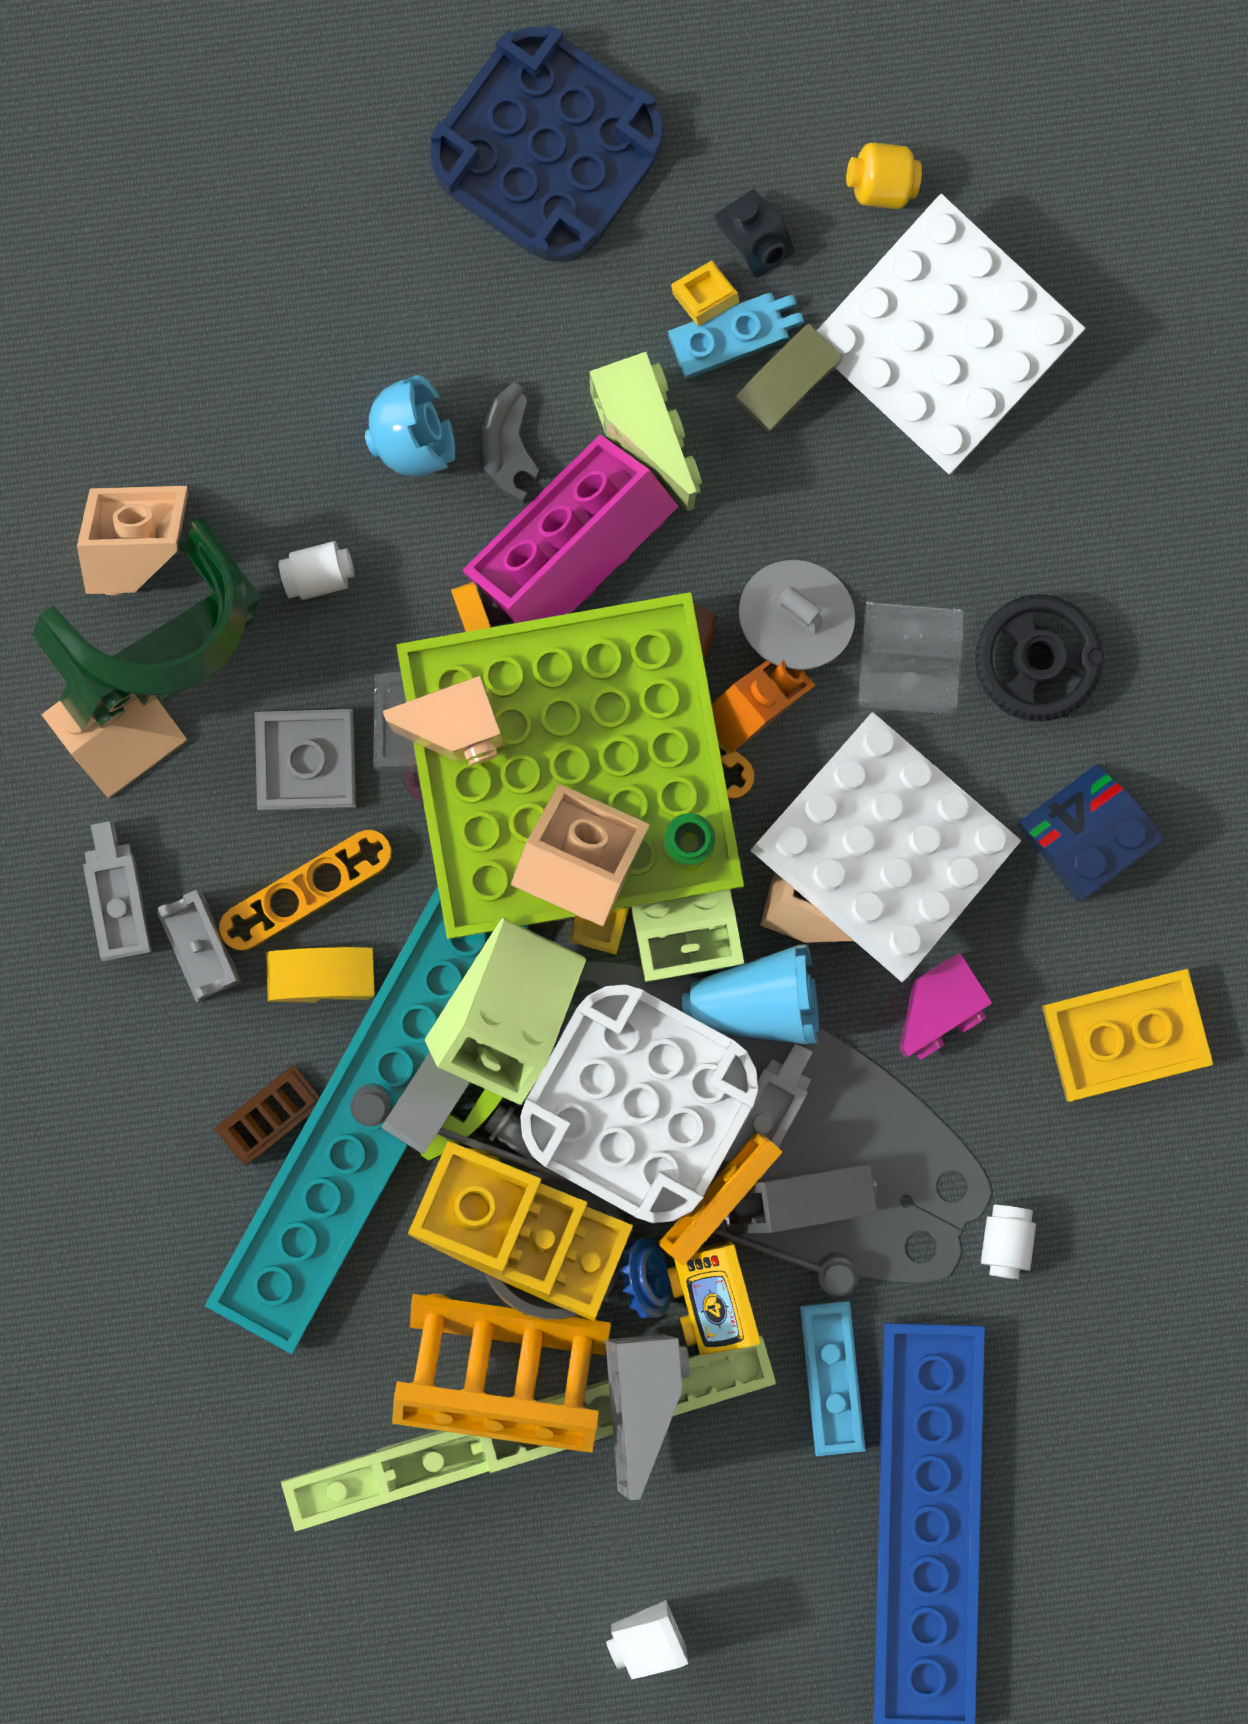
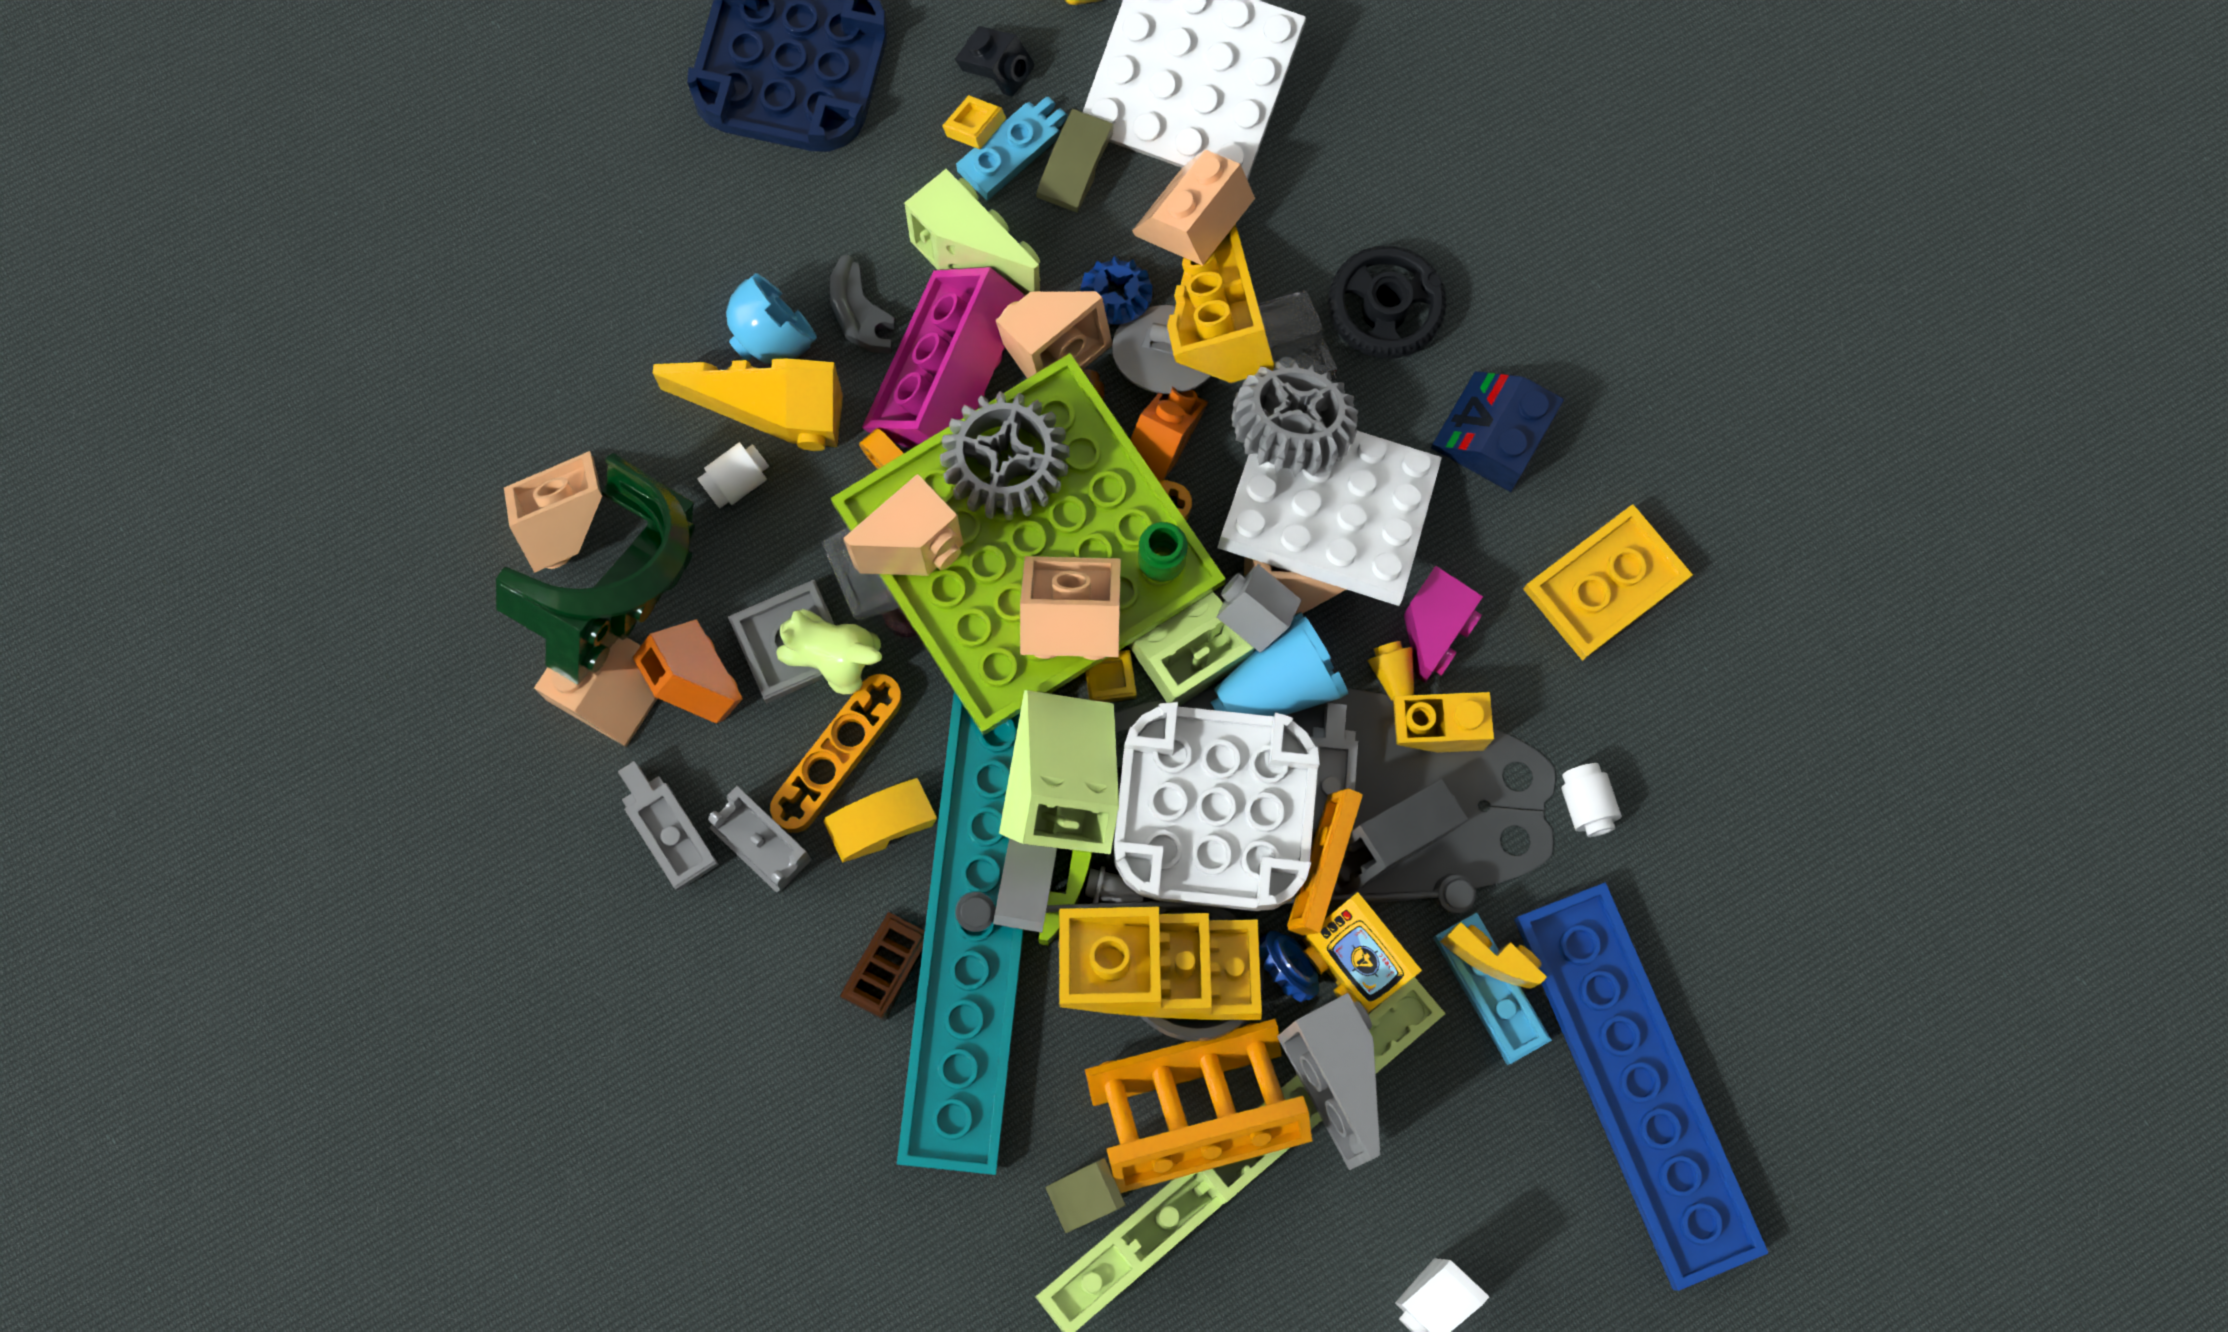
camera: 25 degrees left, 10 degrees down
(194, 754) = (687, 672): none -> orange slope
(343, 795) = (833, 649): none -> yellowish green animal
(363, 1410) = (1085, 1195): none -> olive slope
(397, 521) = (789, 400): none -> yellow wedge
(564, 697) = (985, 449): none -> light grey gear
(686, 558) = (1052, 325): none -> light nougat slope
(758, 548) = (1136, 289): none -> blue gear
(762, 928) = (1258, 607): none -> light grey brick
(855, 1368) = (1509, 964): none -> yellow slope
(859, 606) = (1218, 316): none -> yellow wedge
(876, 1036) = (1394, 668): none -> yellow cone
(878, 763) = (1294, 431): none -> light grey gear
(887, 483) = (1197, 207): none -> light nougat slope
(897, 1108) = (1444, 721): none -> yellow slope

